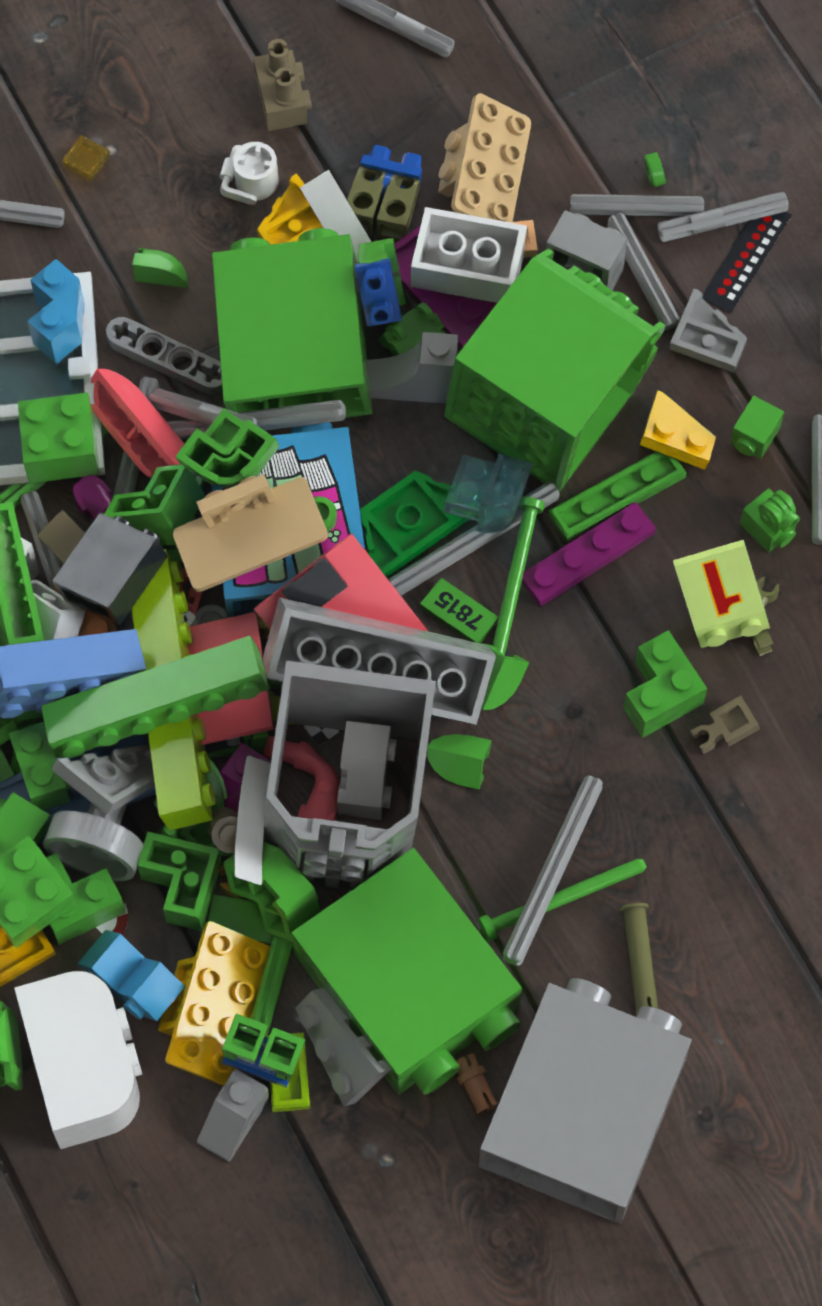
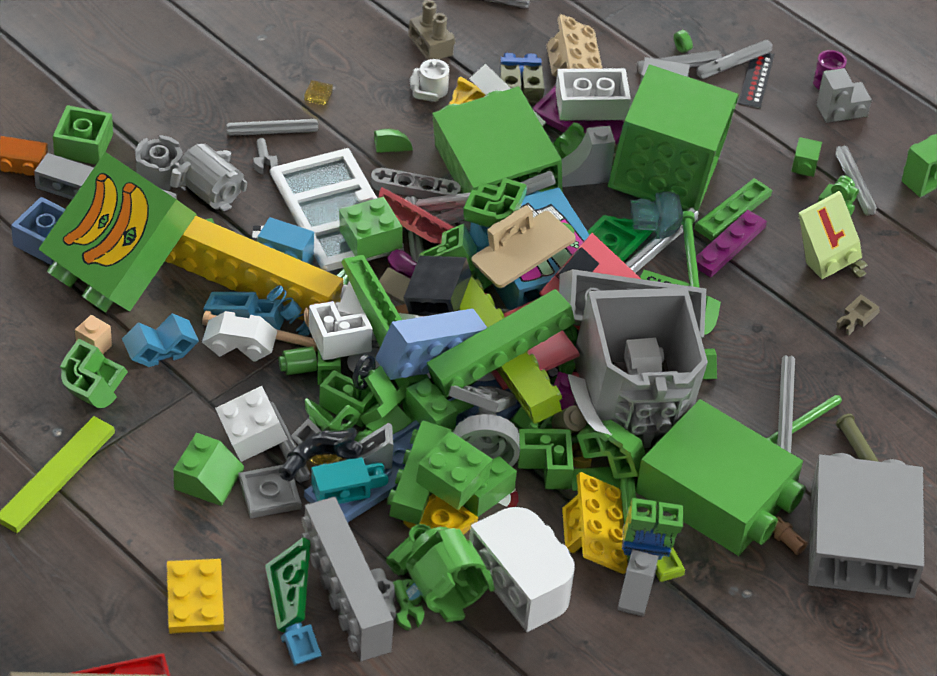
camera: 20 degrees left, 20 degrees down
(58, 324) = (341, 165): dark azure brick -> none
(138, 982) = (555, 514): dark azure brick -> none
(342, 1053) = (702, 533): light grey wing -> none
(380, 282) = (547, 113): blue hips -> none
(670, 688) = (811, 298): bright green brick -> none
(677, 433) = (757, 170): yellow wing -> none
(708, 335) = (754, 119): light grey wing -> none

